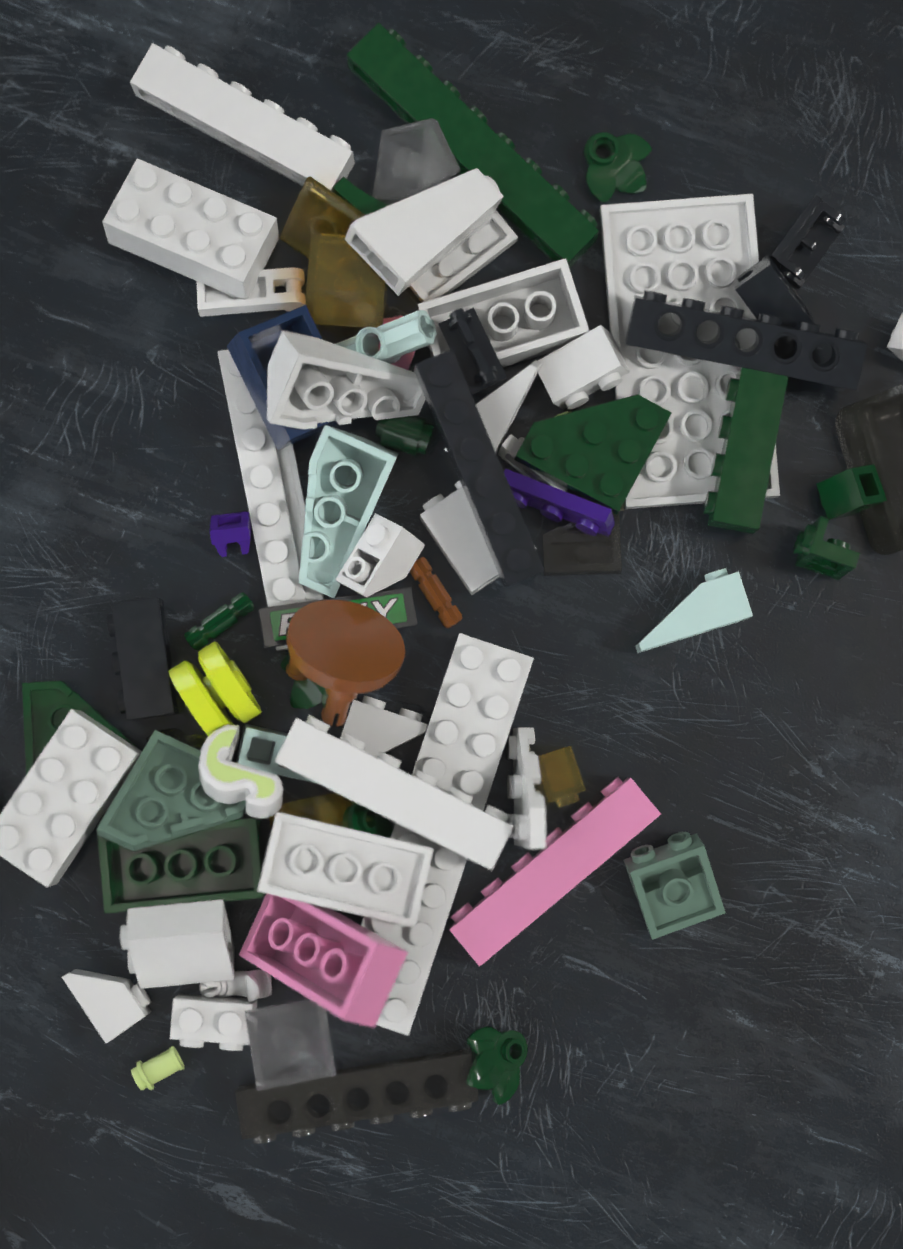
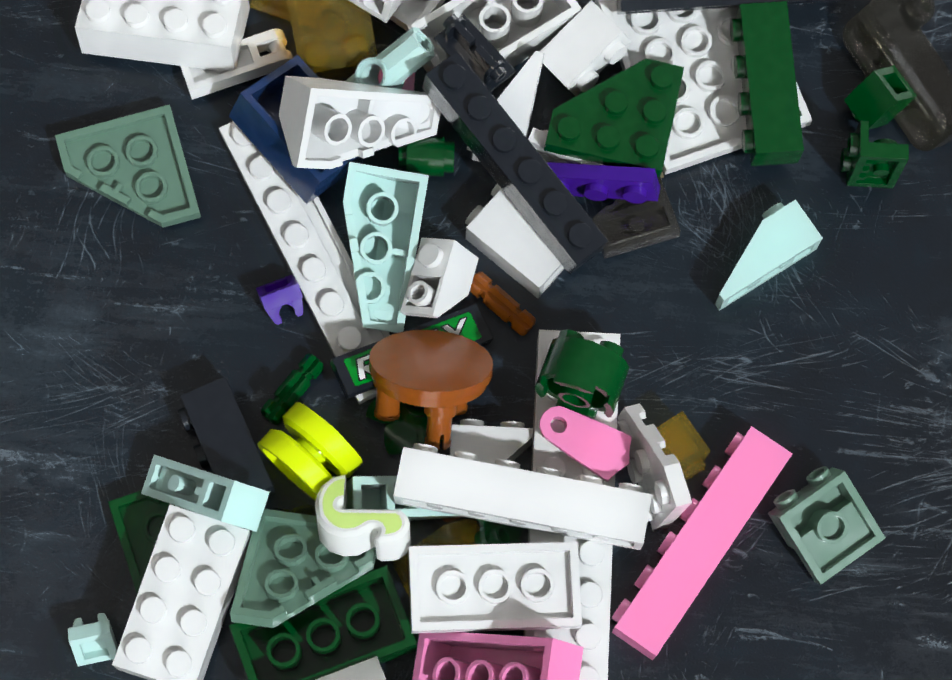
camera: 20 degrees left, 10 degrees down
(108, 706) = (205, 493): none -> light aqua slope
(130, 366) = (134, 164): none -> sand green plate
(472, 755) = (588, 441): none -> bright pink piece
(482, 695) = (583, 374): none -> dark green brick

